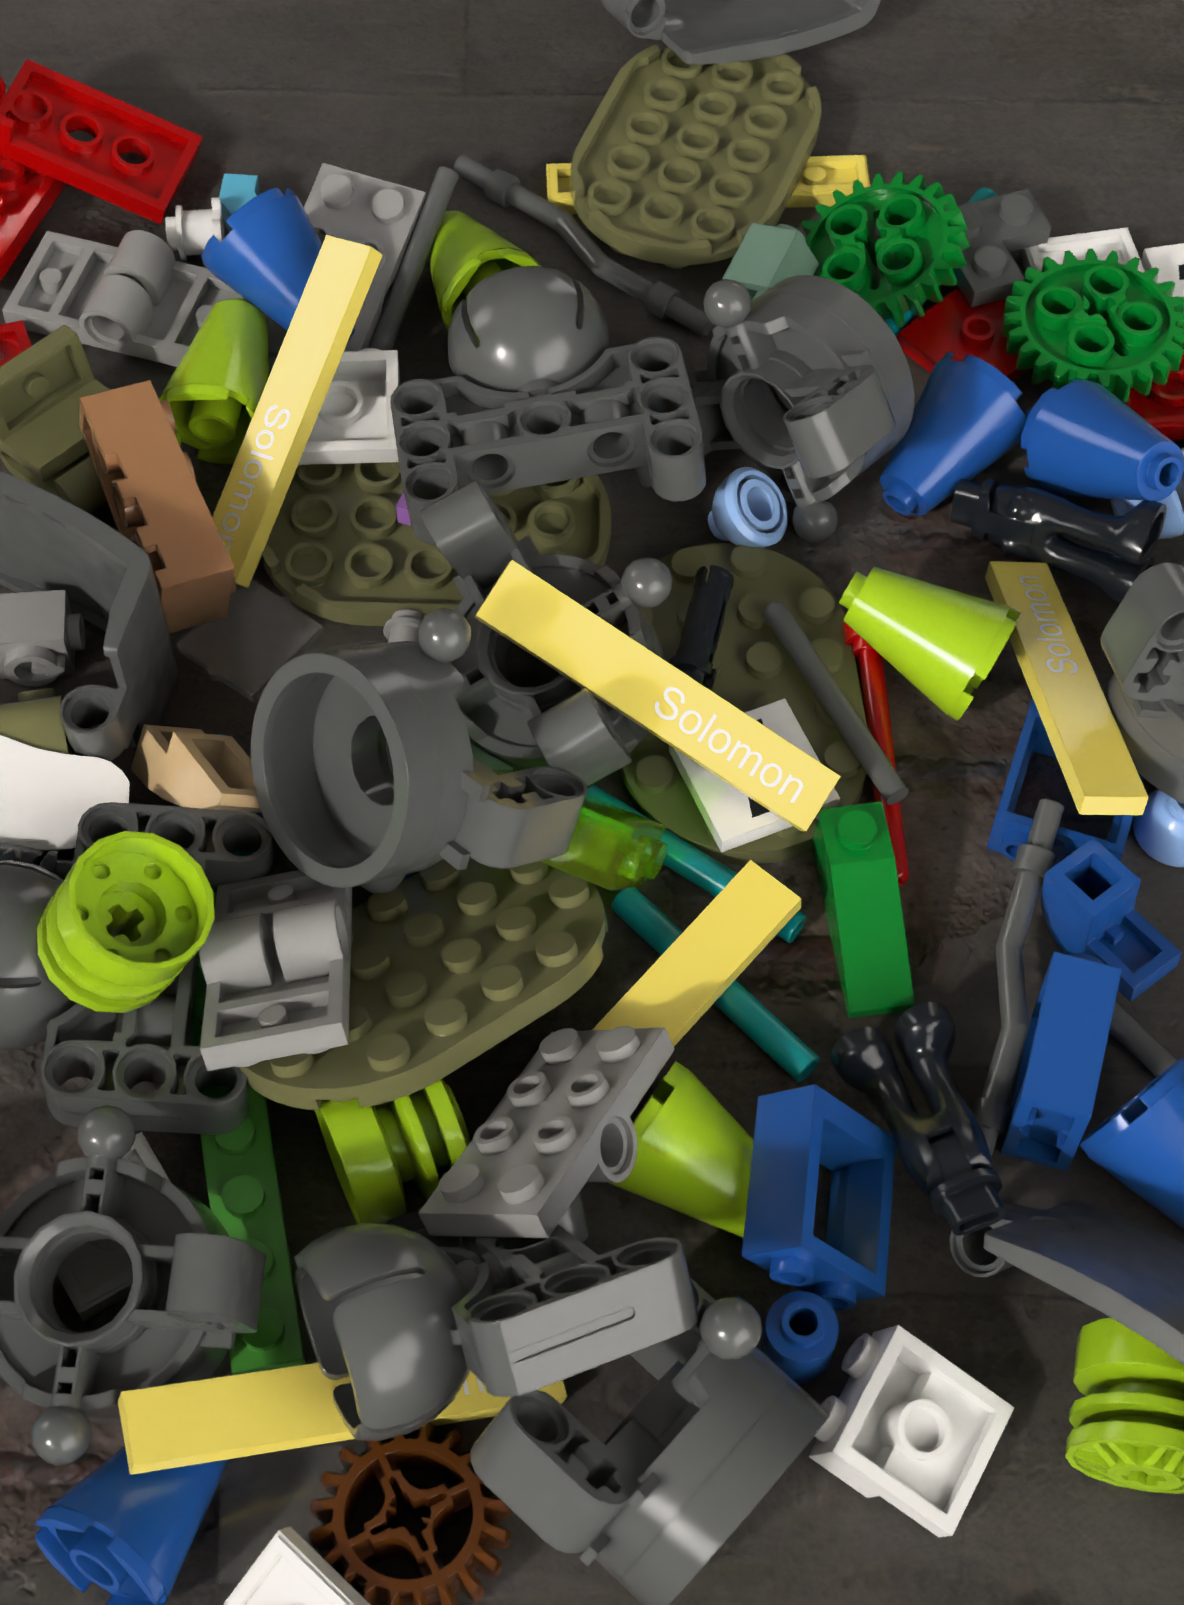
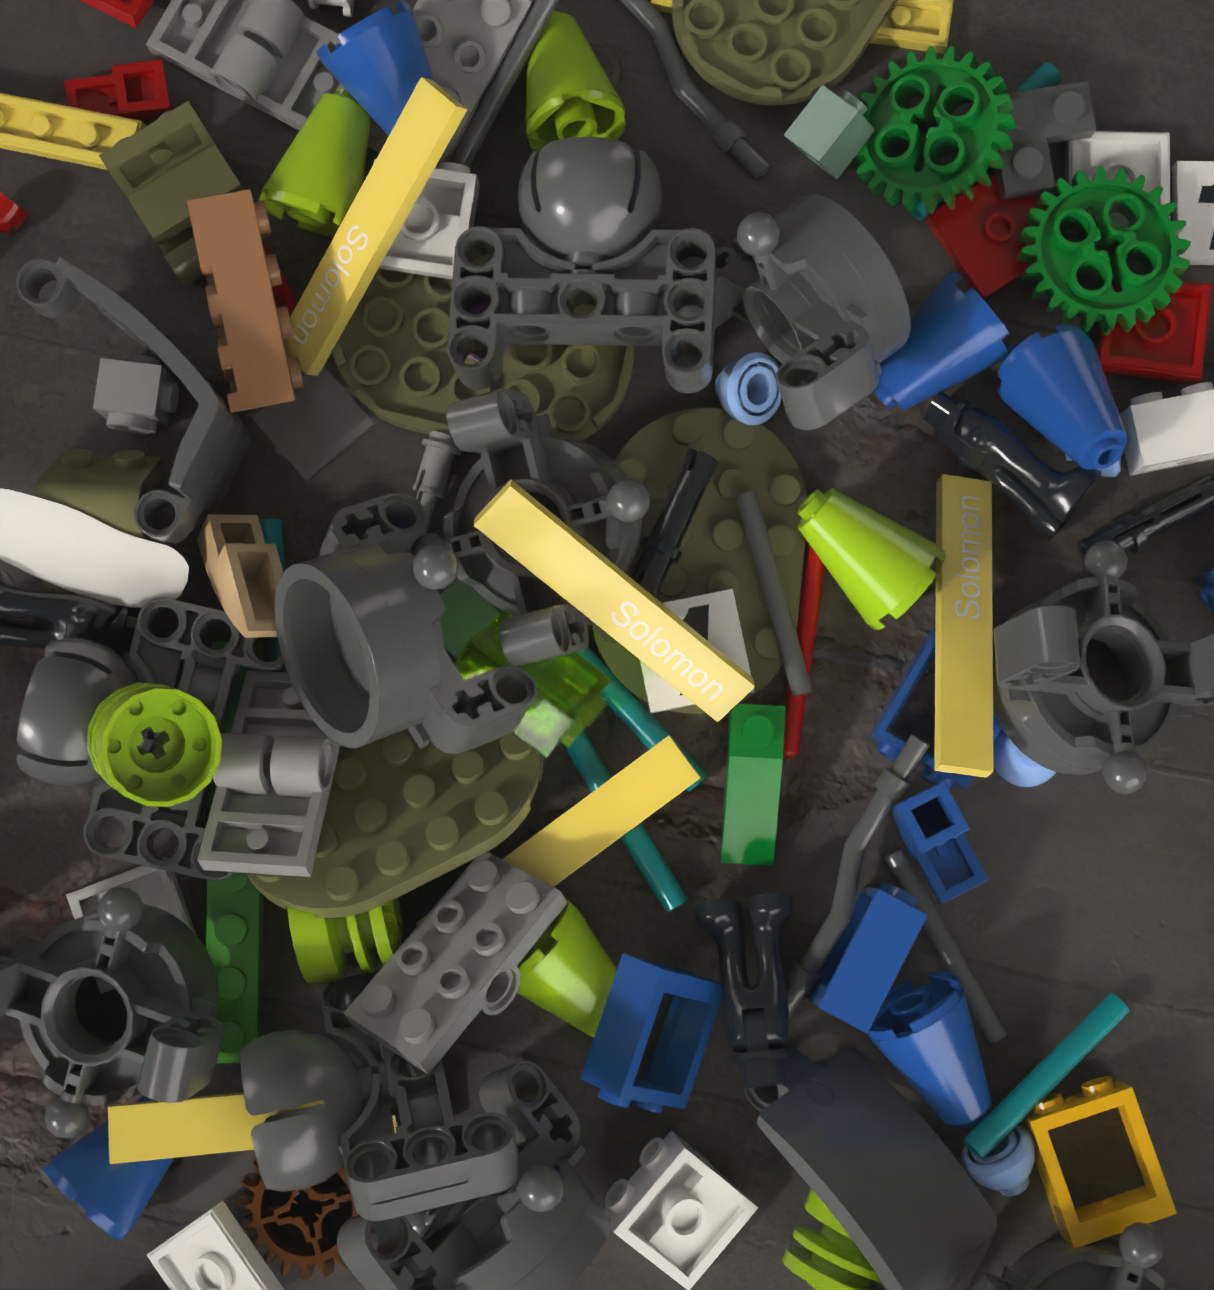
camera: 15 degrees right, 25 degrees up
(799, 1356) = (605, 1115): blue brick -> none

